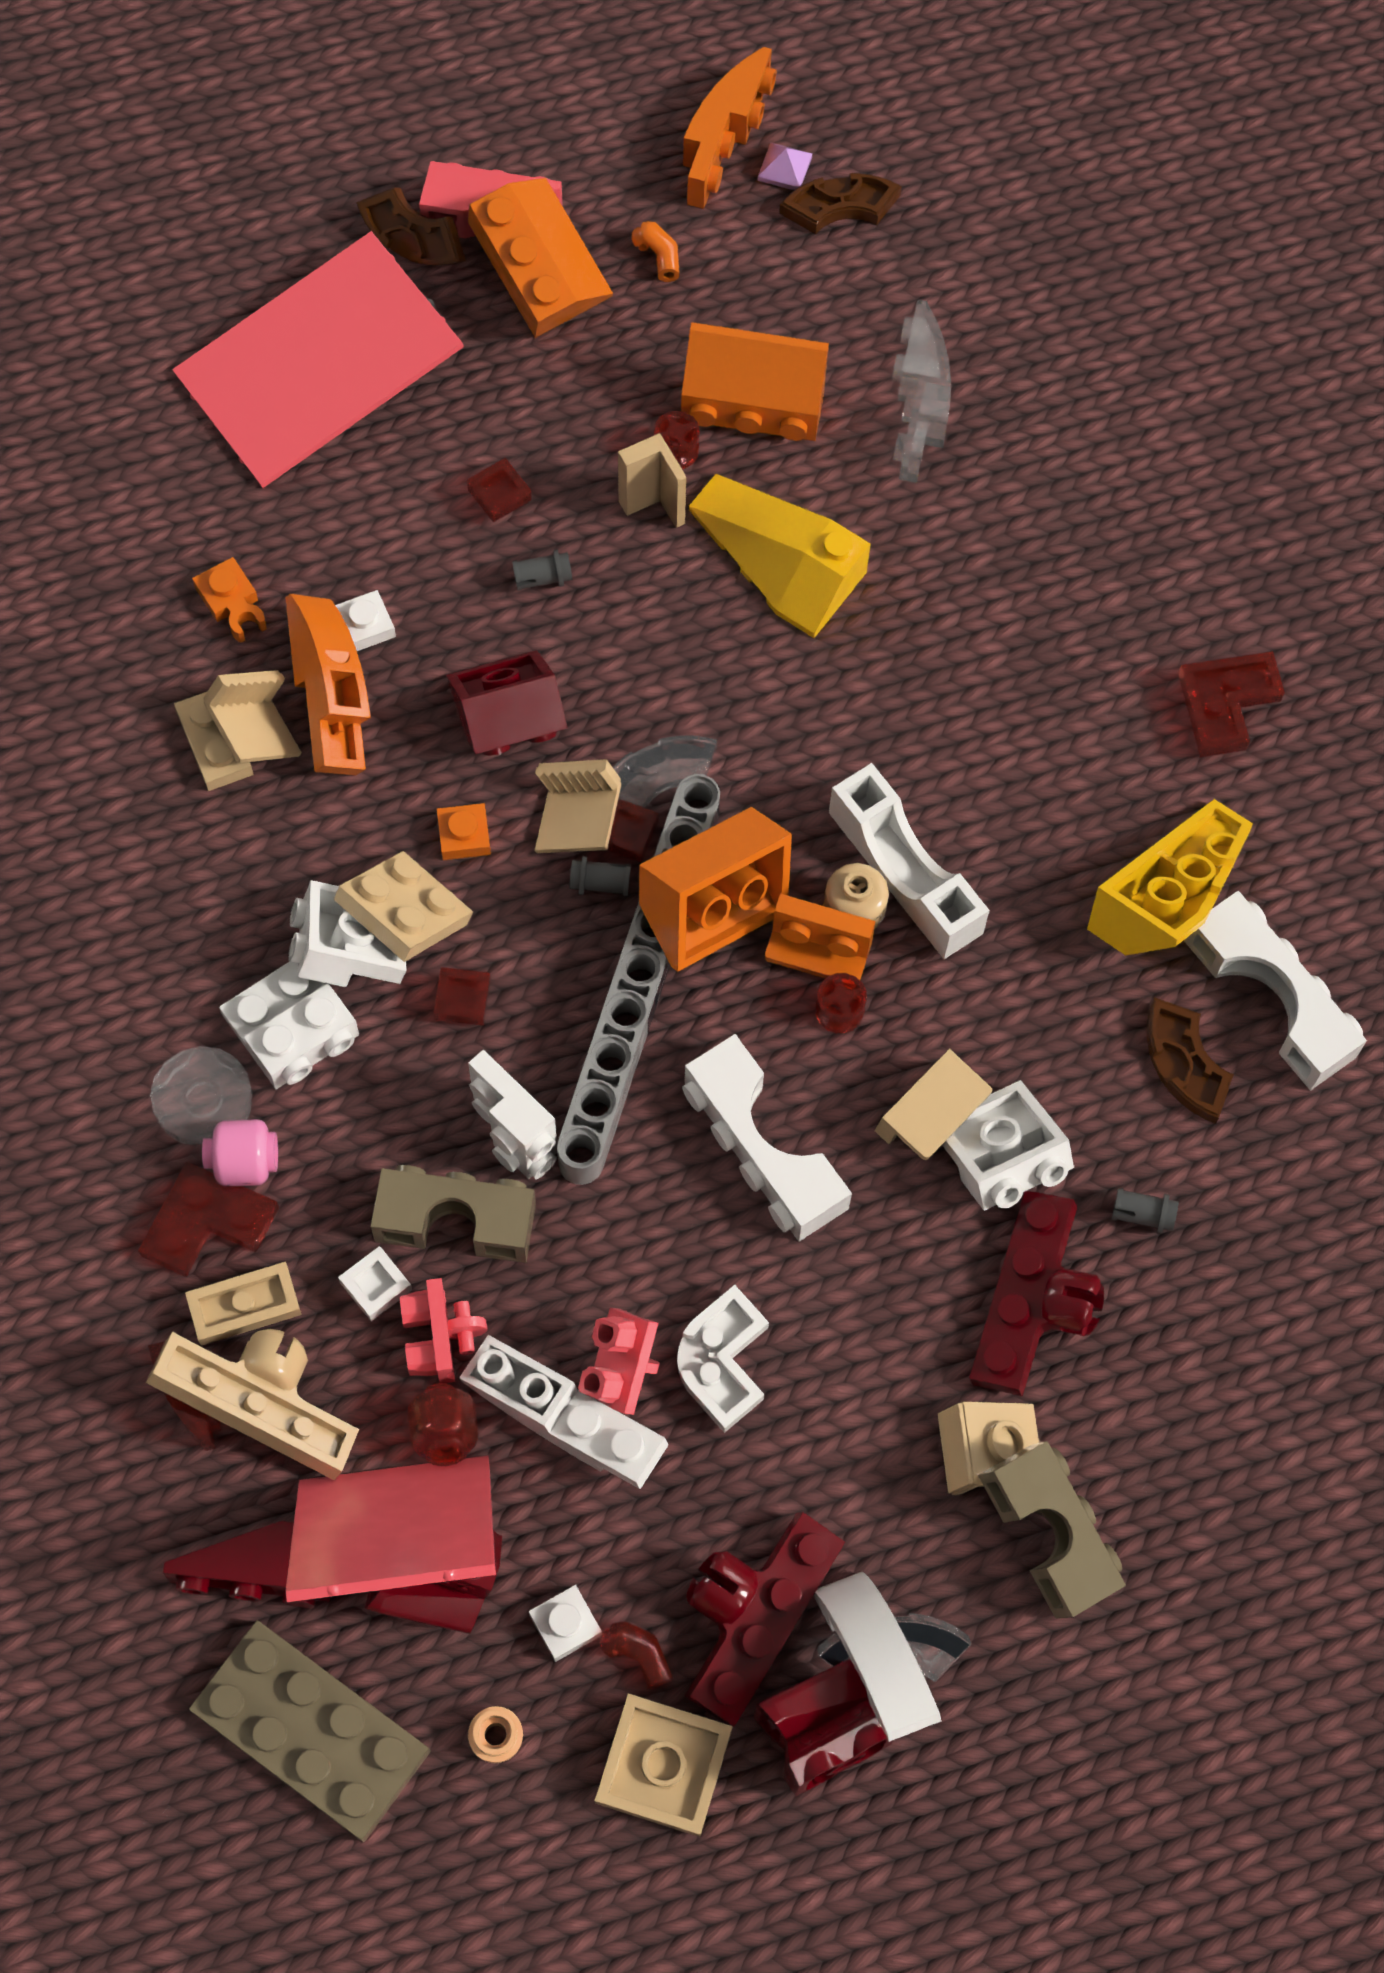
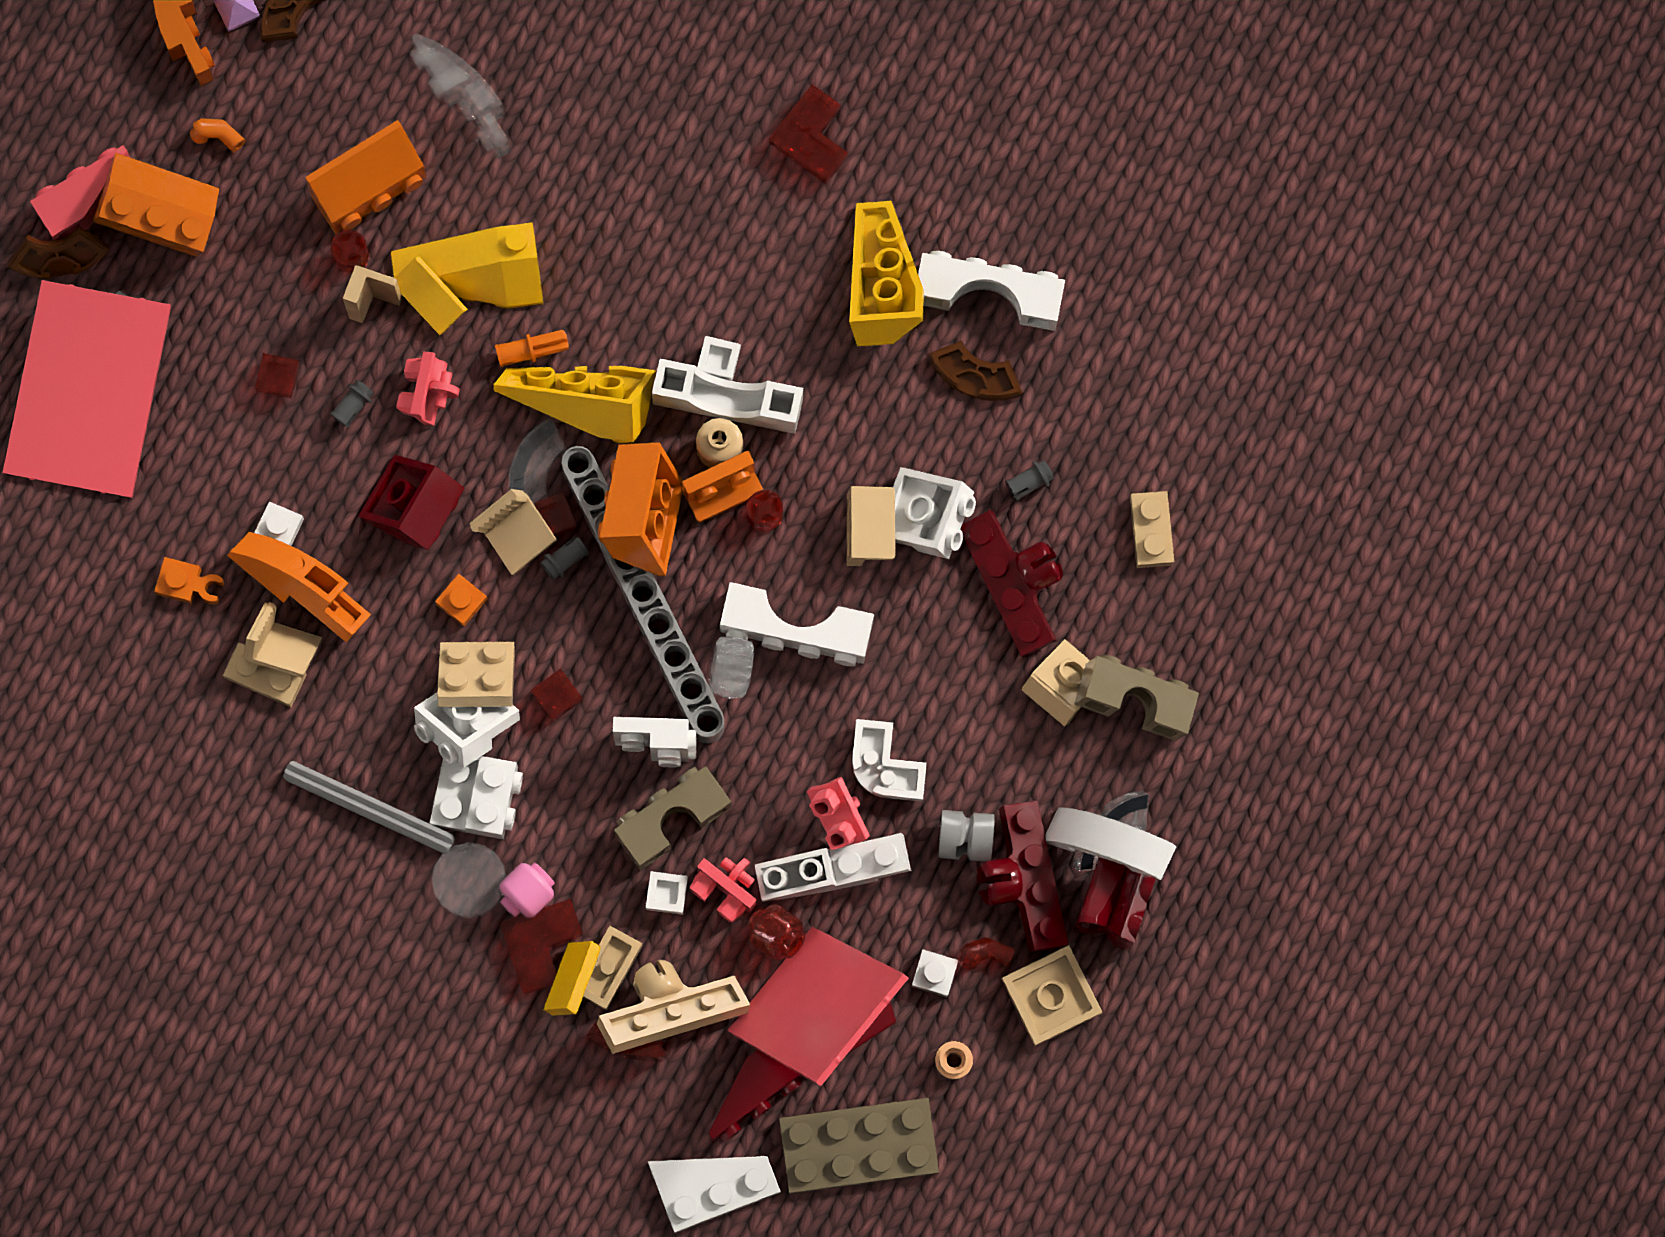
camera: 45 degrees left, 10 degrees up
(119, 1626) = (711, 1187): none -> white wing
(180, 942) = (368, 807): none -> light grey axle
(195, 1278) = (572, 978): none -> yellow tile
(626, 615) = (431, 388): none -> coral hips
(656, 1118) = (731, 667): none -> clear gear
(710, 535) = (429, 296): none -> yellow tile
(733, 1507) = (966, 836): none -> light grey wheel
(760, 662) = (532, 347): none -> orange axle
(770, 762) = (601, 404): none -> yellow wedge
(936, 823) = (719, 358): none -> white plate
(1232, 1374) = (1152, 529): none -> tan plate

